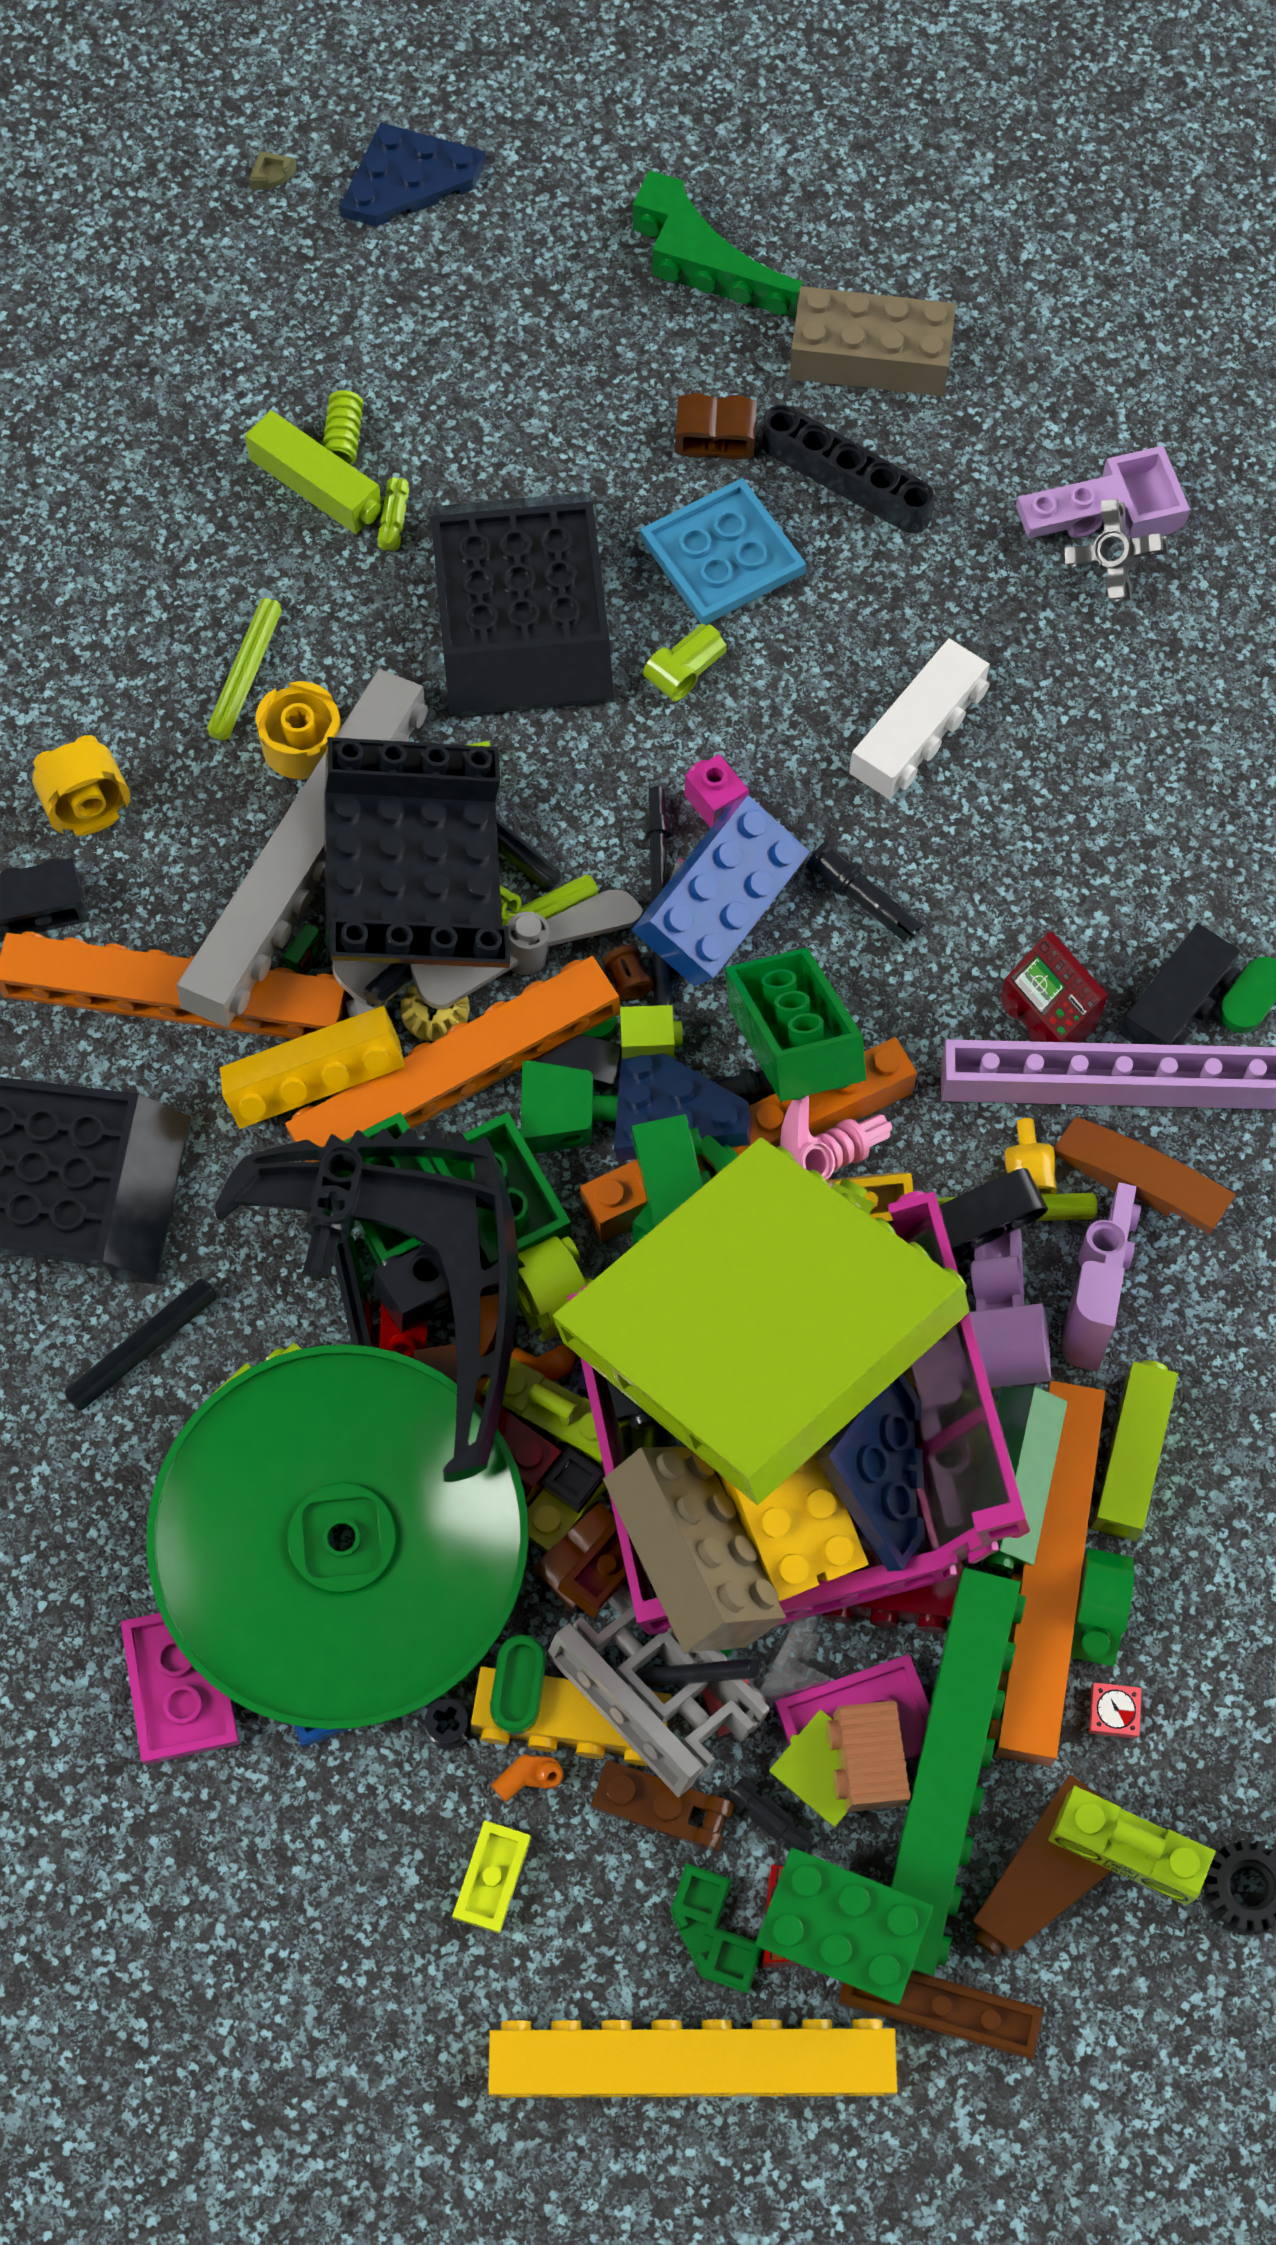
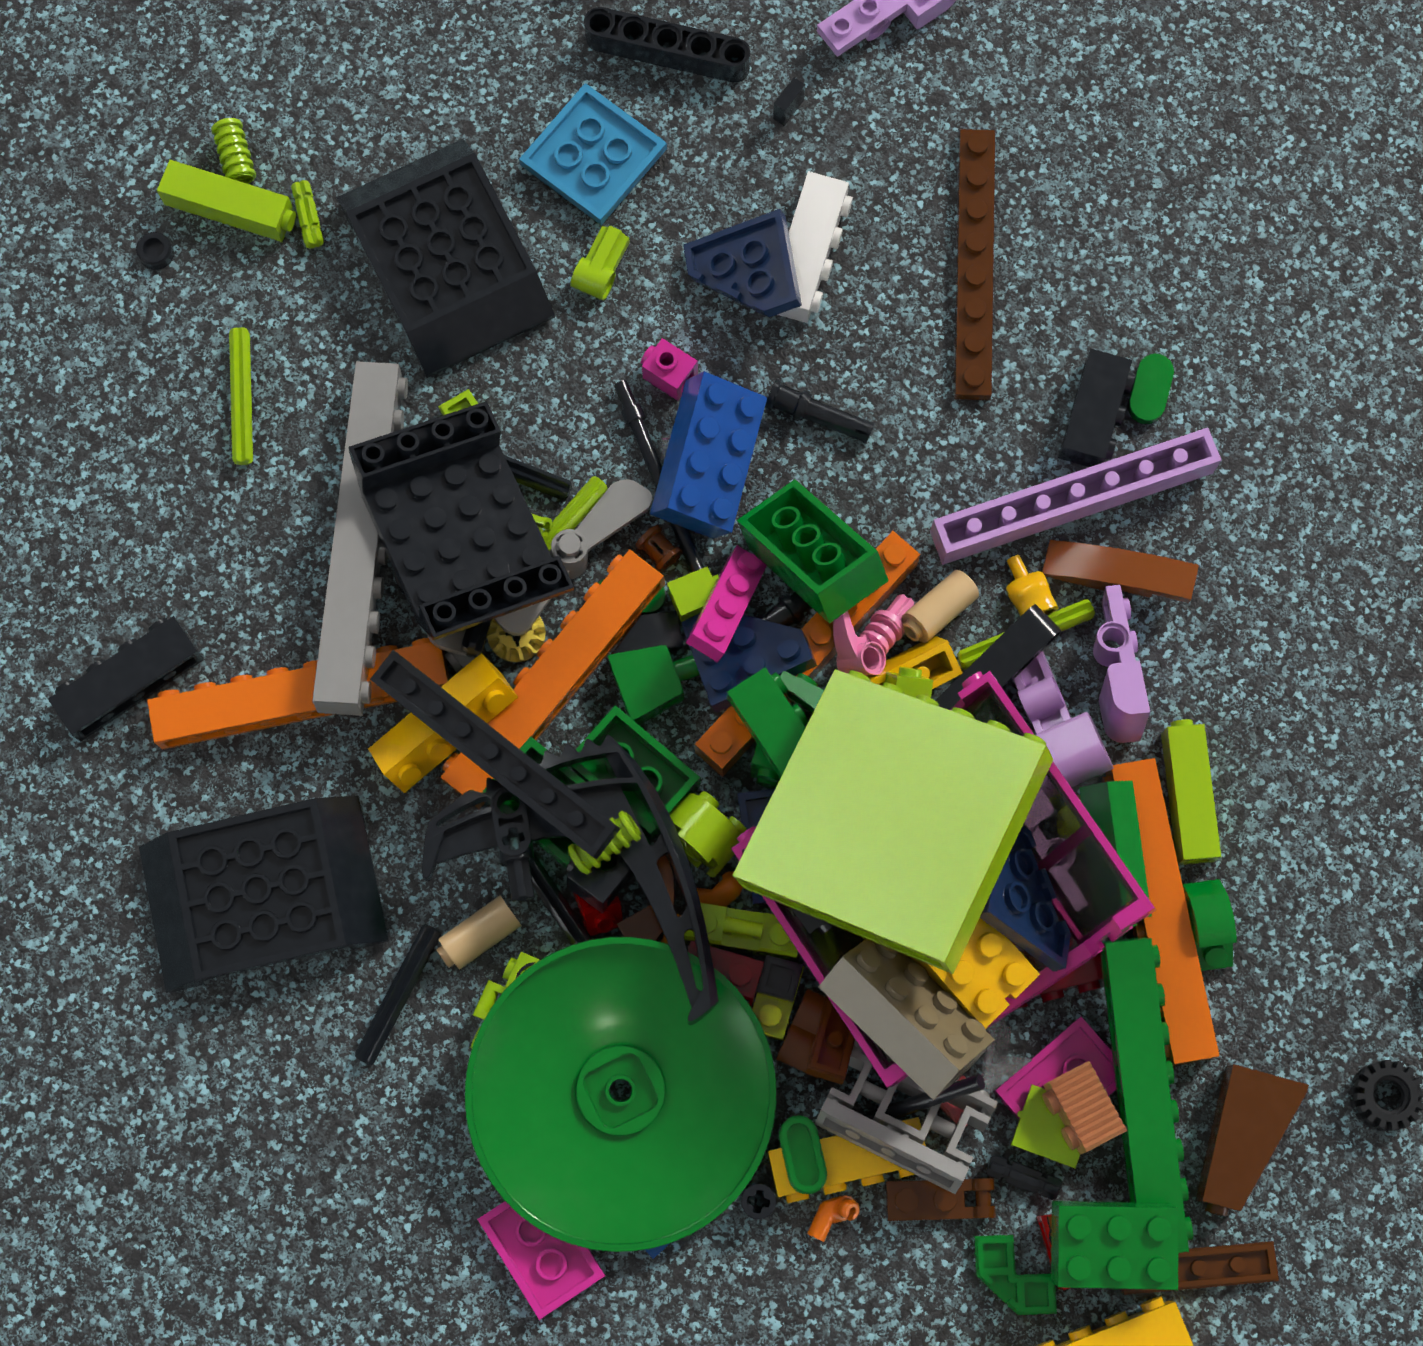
camera: 20 degrees left, 10 degrees up
(80, 786) = (152, 551): yellow brick -> none
(219, 498) = (155, 250): none -> black tile
(256, 1309) = (477, 933): none -> tan brick
(296, 727) = (296, 428): yellow brick -> none
(304, 950) = (392, 624): green tile -> none
(350, 1109) = (495, 755): none -> black plate
(430, 1244) = (628, 832): none -> lime piece
(491, 1877) = (836, 1302): neon yellow plate -> none
(676, 1048) = (726, 603): none -> dark pink plate
(715, 426) = (544, 43): reddish brown brick -> none
(845, 709) = (748, 264): none -> dark blue plate
(919, 1140) = (939, 606): none -> tan brick
(957, 566) = (789, 101): none -> black tile
(1053, 994) = (1000, 450): dark red slope -> none
(1100, 799) = (975, 265): none -> reddish brown plate
(1114, 530) = (905, 25): dark grey pin -> none
(1115, 1710) = (1245, 999): tile -> none
(1131, 1846) = (1299, 1104): lime piece -> none

